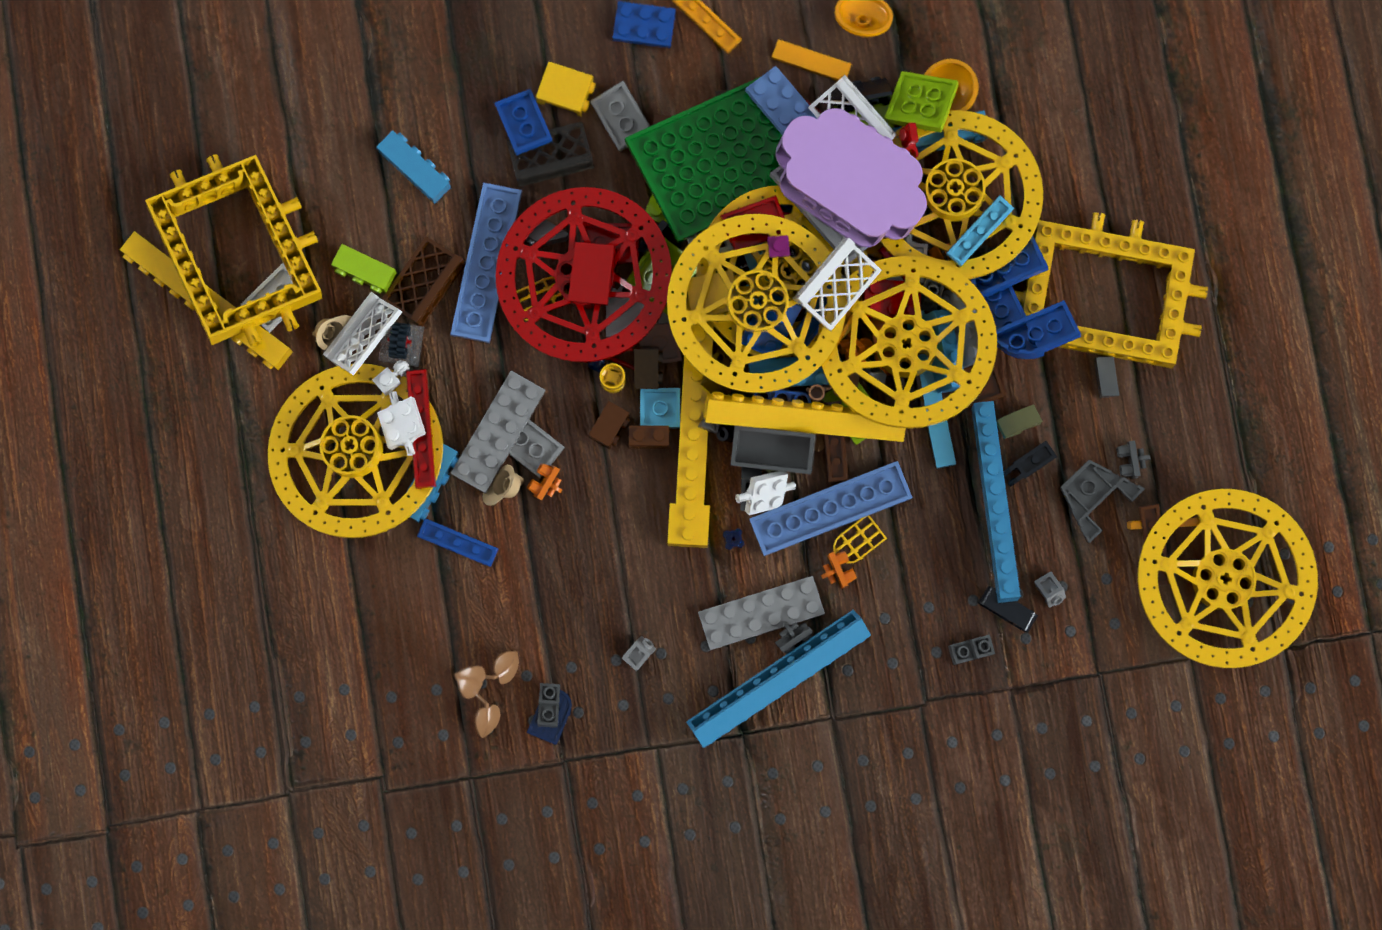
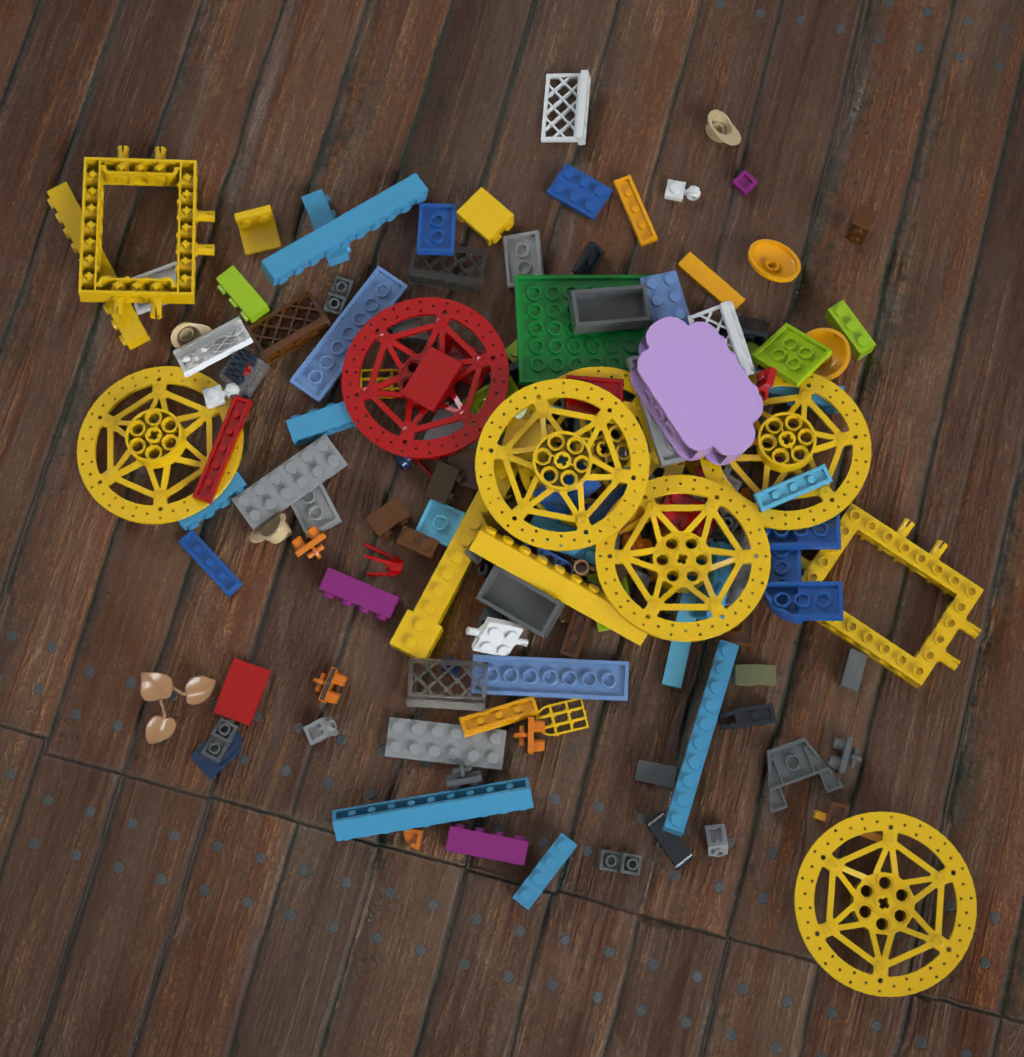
camera: 30 degrees right, 5 degrees down
(348, 198) = (258, 229): none -> yellow bracket
(401, 423) = (207, 436): white plate -> none
(436, 161) = (344, 229): none -> dark azure brick
(457, 228) = (339, 295): none -> dark grey slope
(499, 362) = (319, 422): none -> dark azure brick
(547, 650) = (242, 692): none -> red tile
(612, 378) = (410, 478): yellow wheel -> none
(616, 510) = (359, 594): none -> magenta brick
(630, 617) = (327, 694): none -> orange hips
(634, 467) = (394, 564): none -> red plant
(685, 90) = (588, 260): none -> black plate
(732, 132) = (609, 309): none -> dark grey piece
(744, 573) = (443, 700): none -> clear smoke fence
(771, 713) = (413, 837): none -> orange tile
(778, 246) = (603, 422): magenta plate -> none
(799, 566) = (498, 716): none -> light orange tile
(822, 275) = (634, 462): white fence -> none
(843, 689) = (486, 845): none -> magenta brick
(907, 688) = (544, 871): none -> dark azure brick
(958, 47) = (844, 321): none -> lime brick
(968, 553) = (655, 773): none -> dark grey slope

